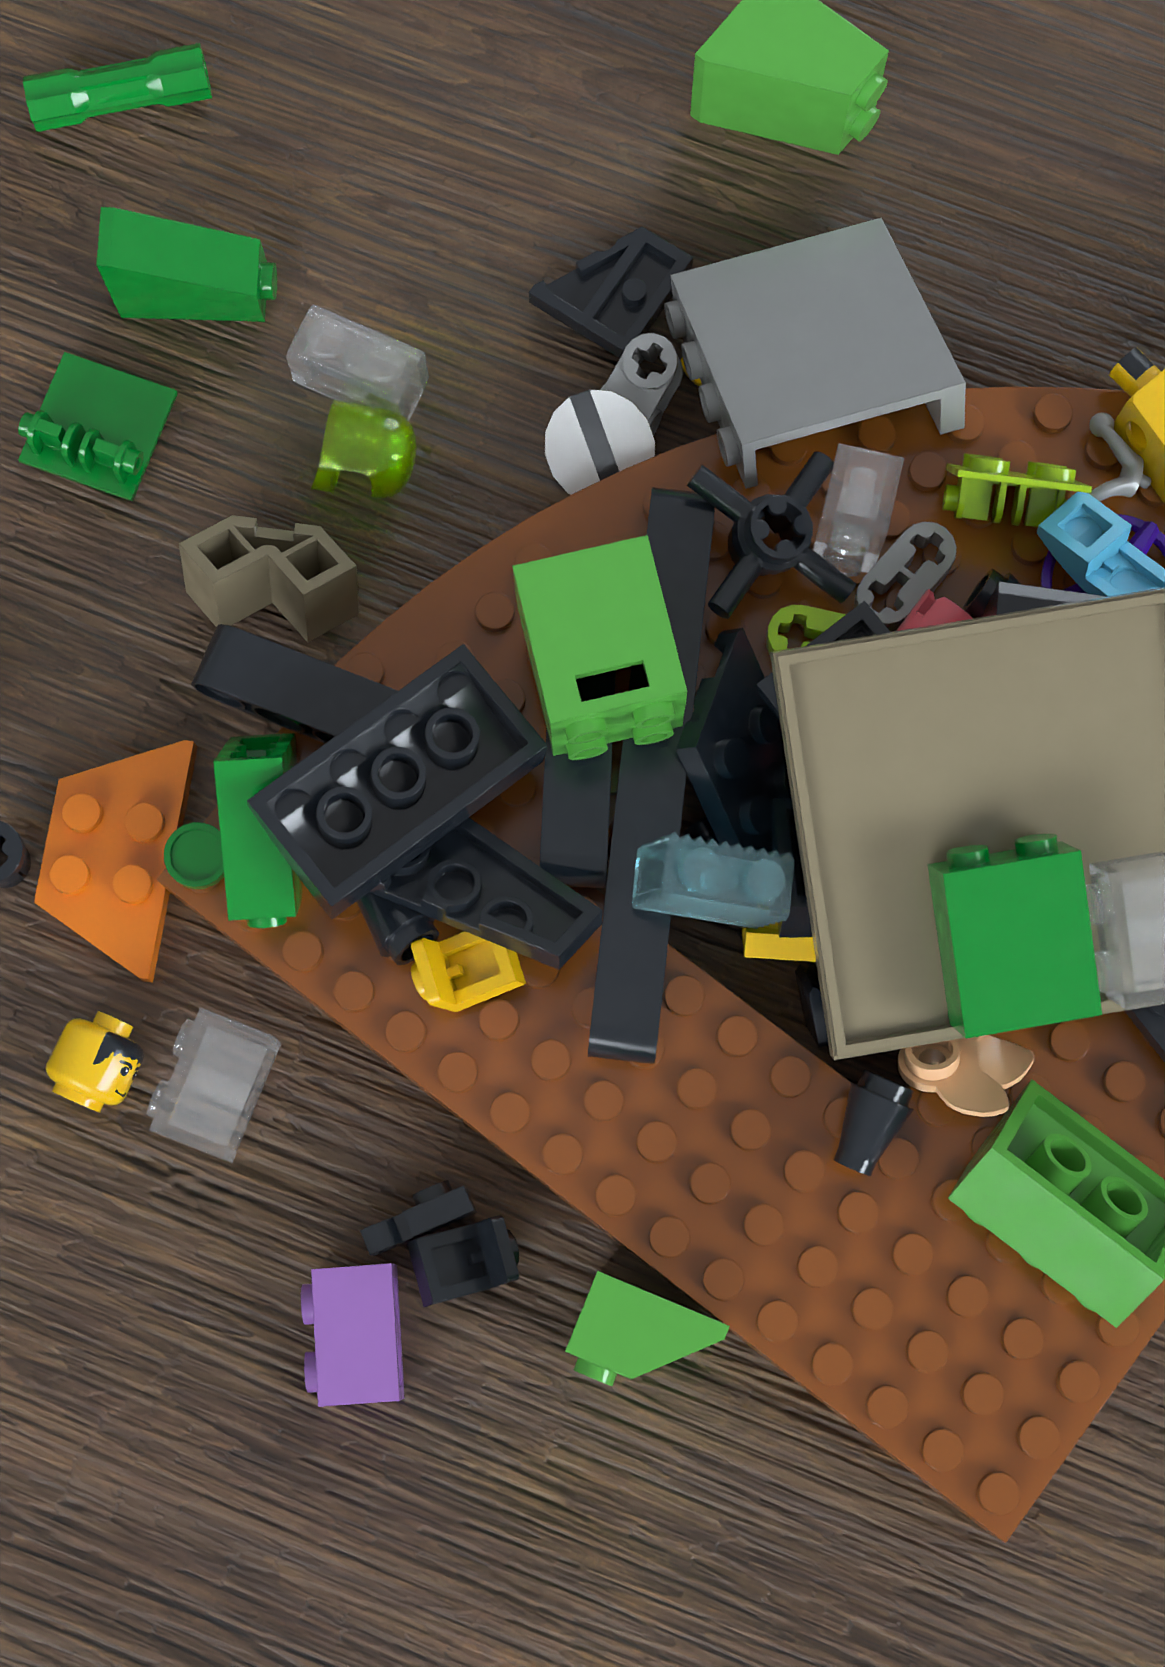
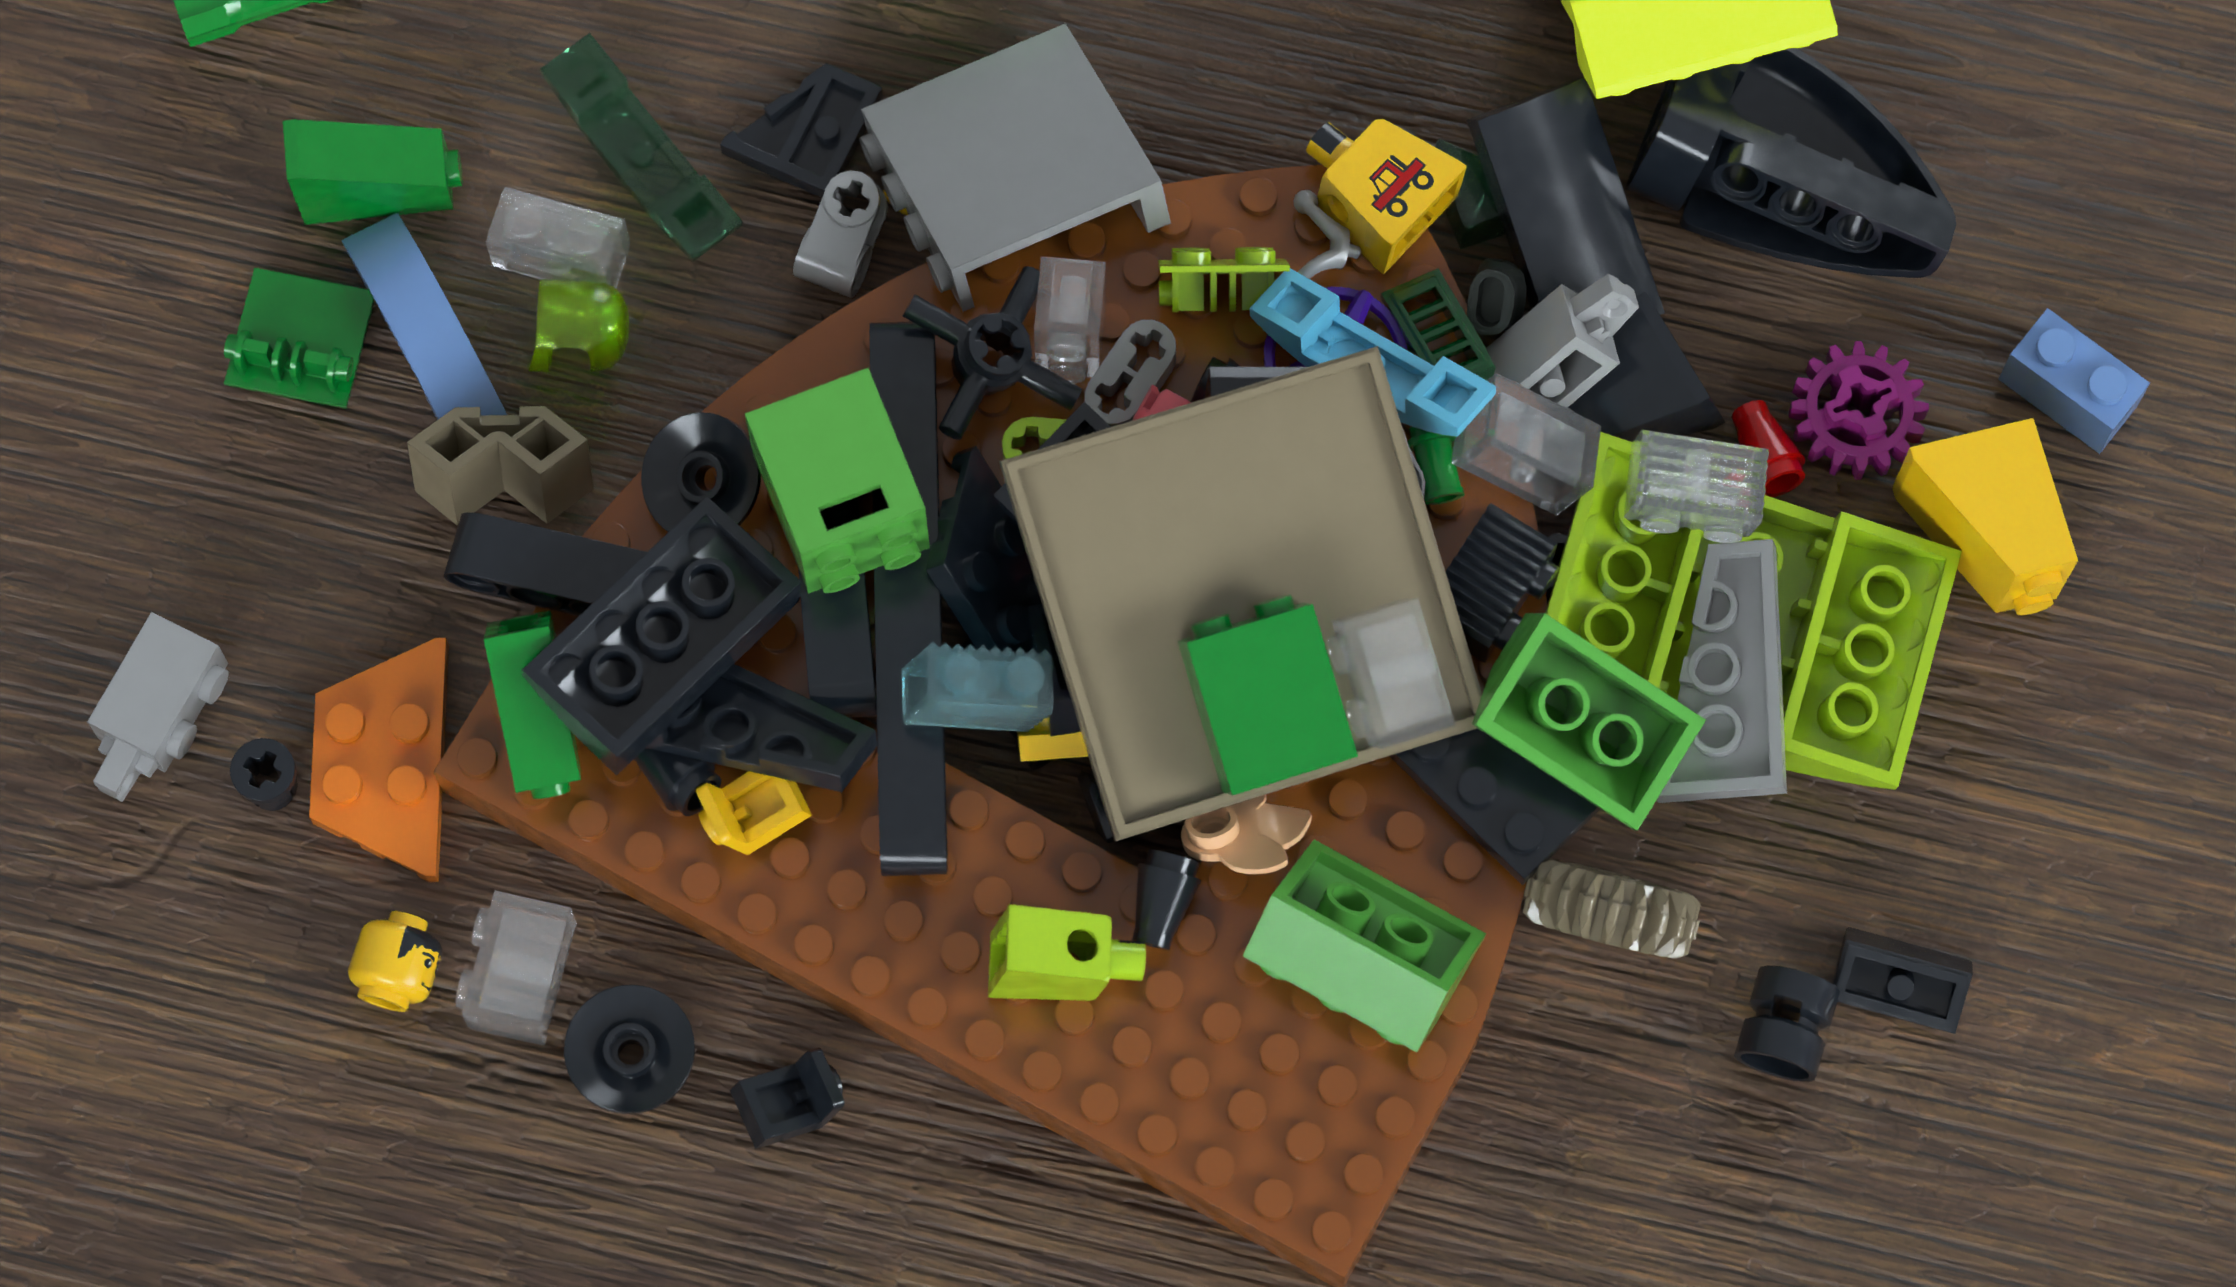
camera: 10 degrees left, 5 degrees down
(195, 855) = (472, 741): green piece -> none
(216, 424) = (421, 318): none -> medium blue slope
(279, 1178) = (623, 1018): none -> black dish
(354, 1334) = (692, 1185): medium lavender brick -> none
(434, 1209) = (750, 1055): black plate -> none
(444, 599) = (681, 457): none -> black dish
(449, 286) = (638, 149): none -> clear green slope
(595, 438) = (807, 282): white sticker -> none
(635, 1331) = (965, 1127): bright green slope -> none
(736, 1163) = (1034, 962): none -> lime torso

